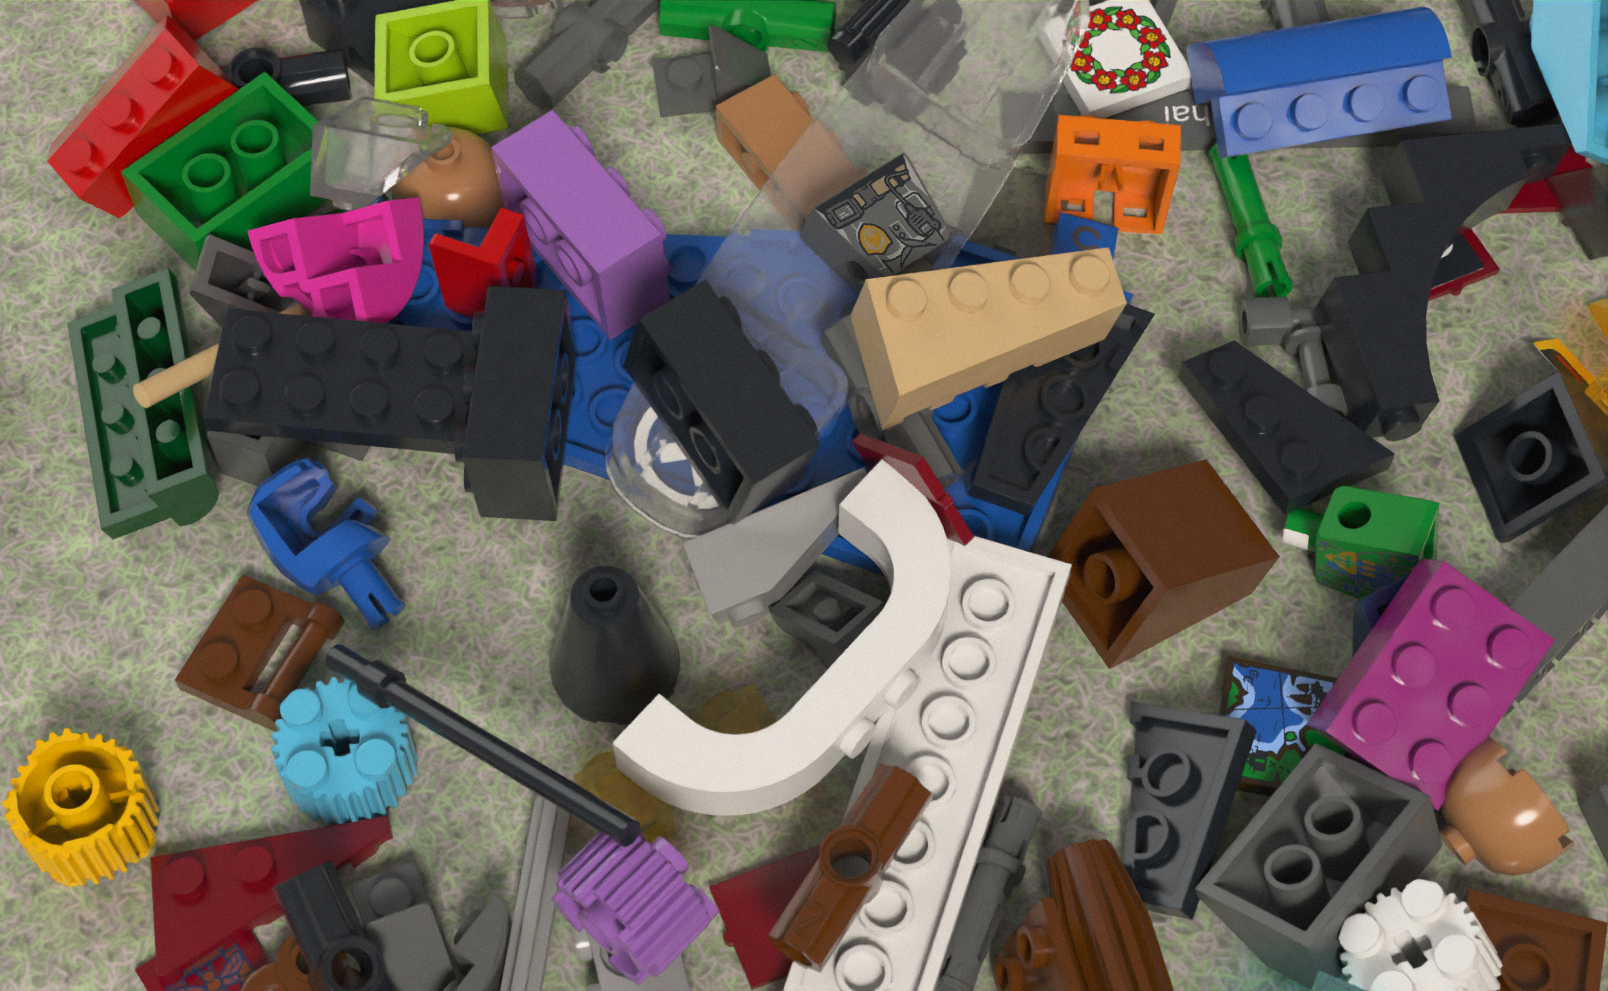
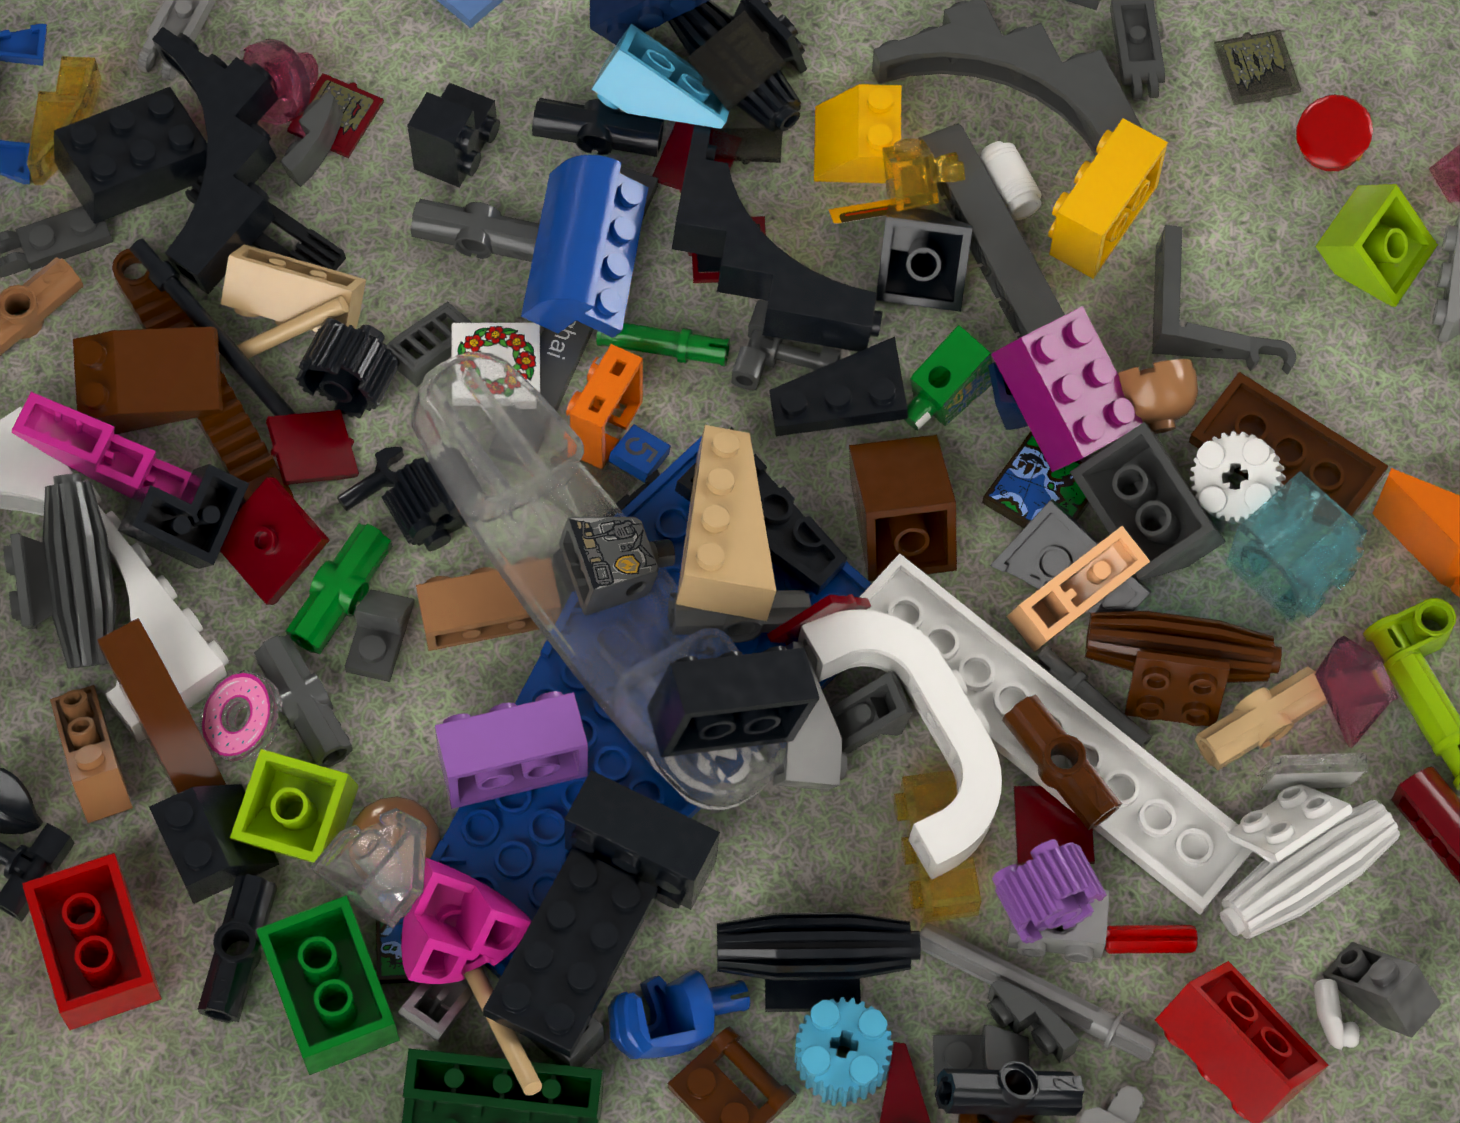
camera: 70 degrees left, 5 degrees up
(138, 108) = (236, 1040): red slope -> none
(388, 687) = (830, 995): black bar -> none
(455, 646) = (814, 954): none -> black plate
(500, 261) = (531, 822): red panel -> none
(612, 649) = (833, 861): black cone -> none
(1135, 808) = (1077, 588): none -> light nougat slope

